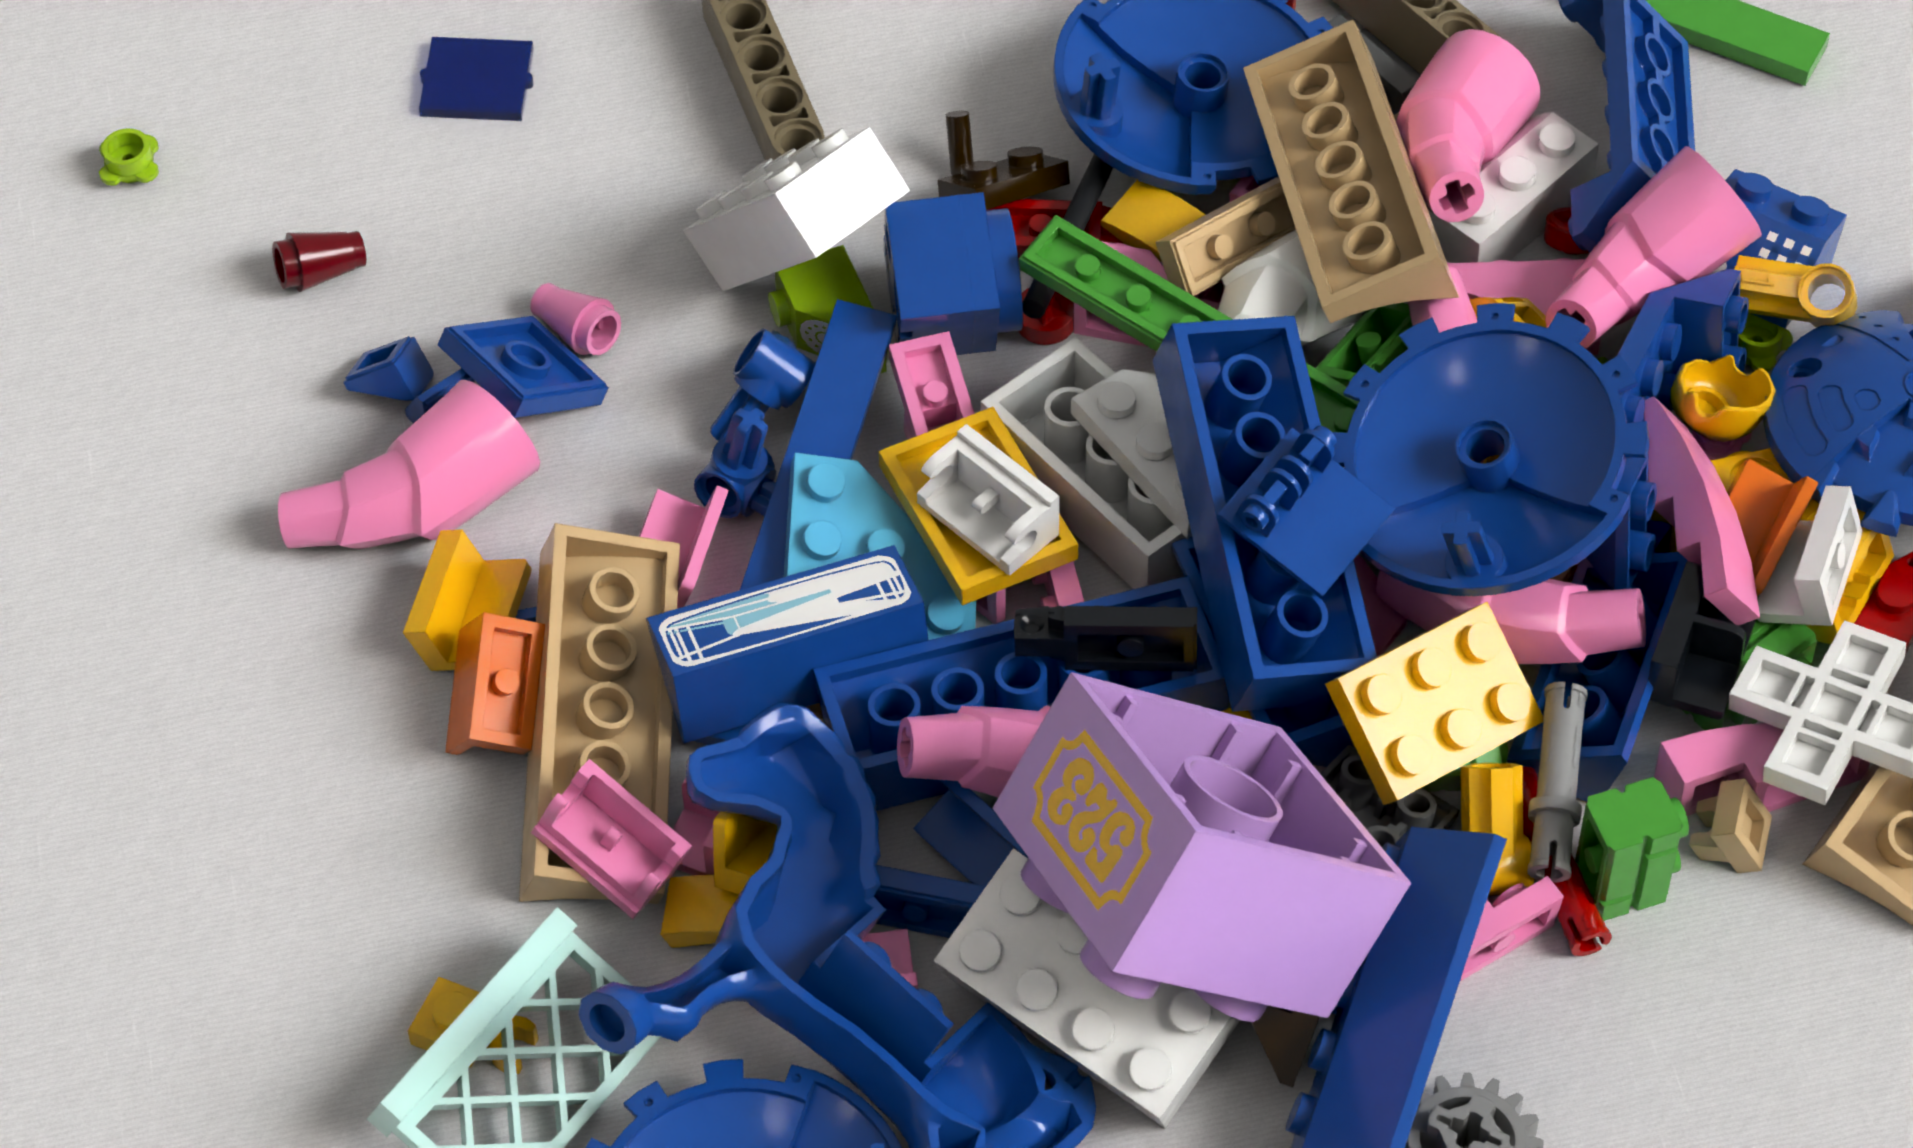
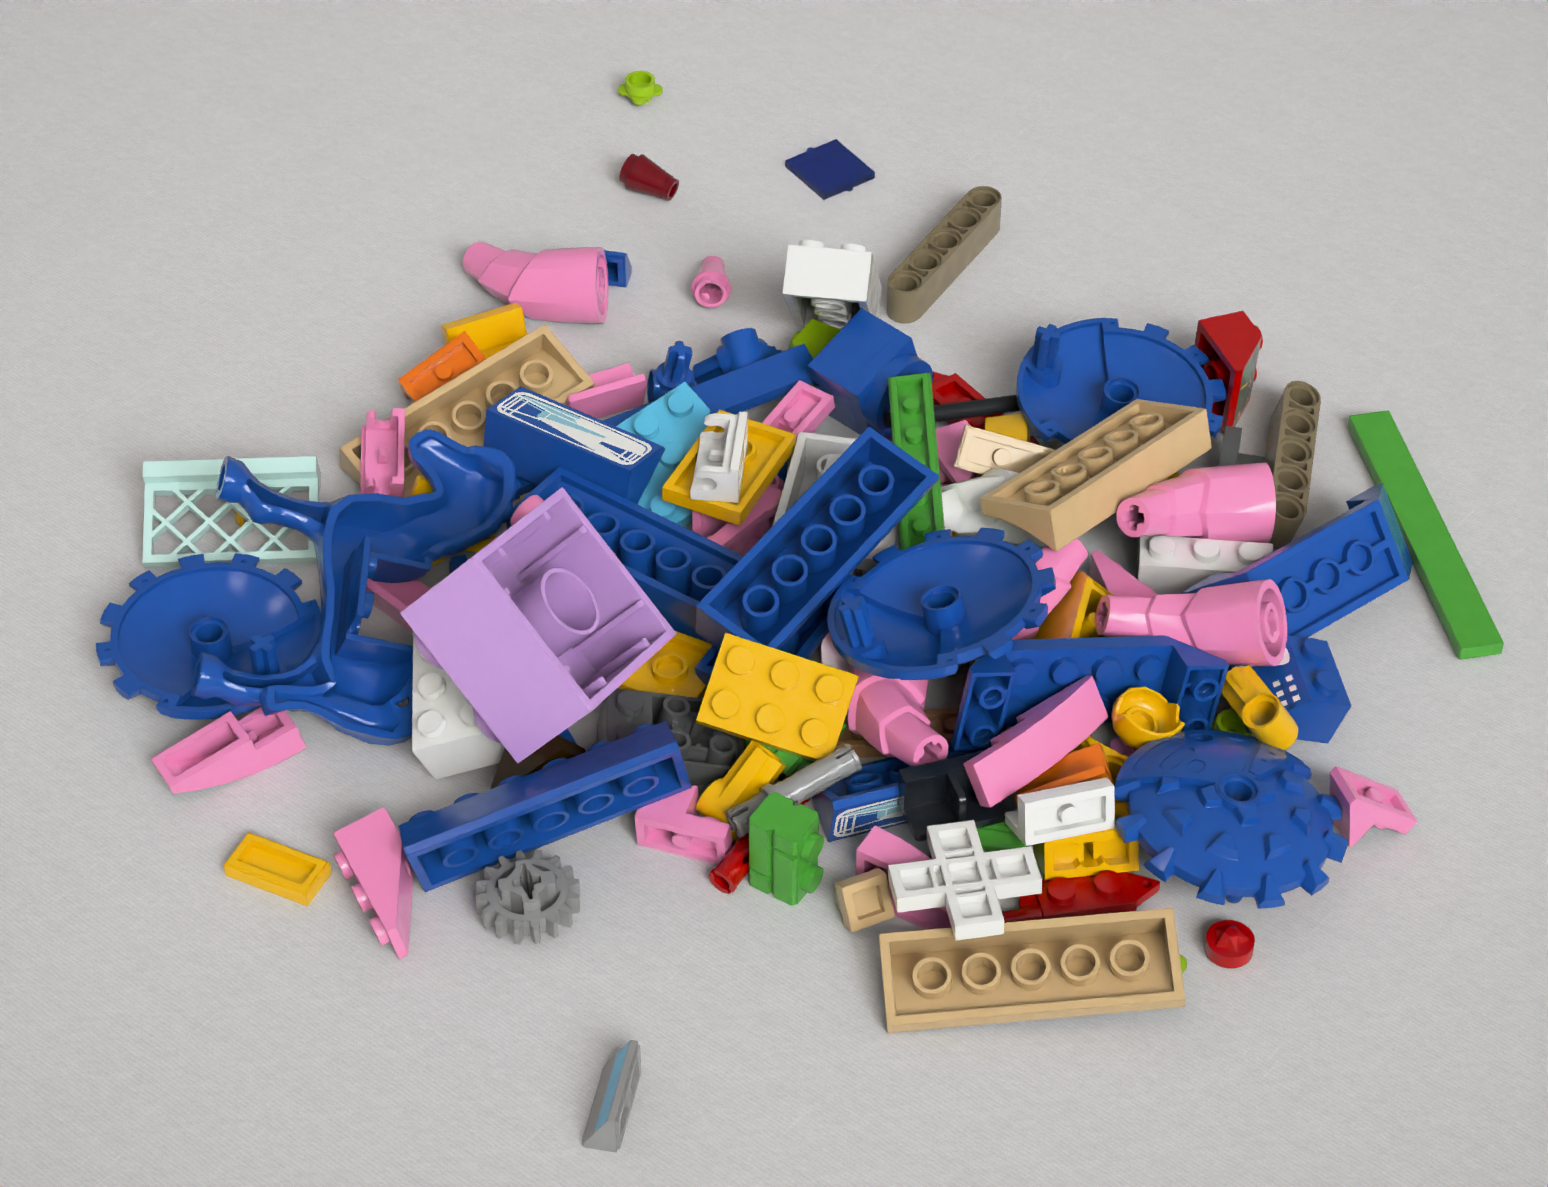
camera: 50 degrees right, 10 degrees down
(391, 371) = (608, 239): blue slope -> none
(523, 366) = (653, 276): blue tile -> none
(1004, 181) = (970, 366): dark brown plate -> none
(1110, 637) = (683, 551): black hinge -> none
(1306, 509) = (817, 556): blue hinge -> none

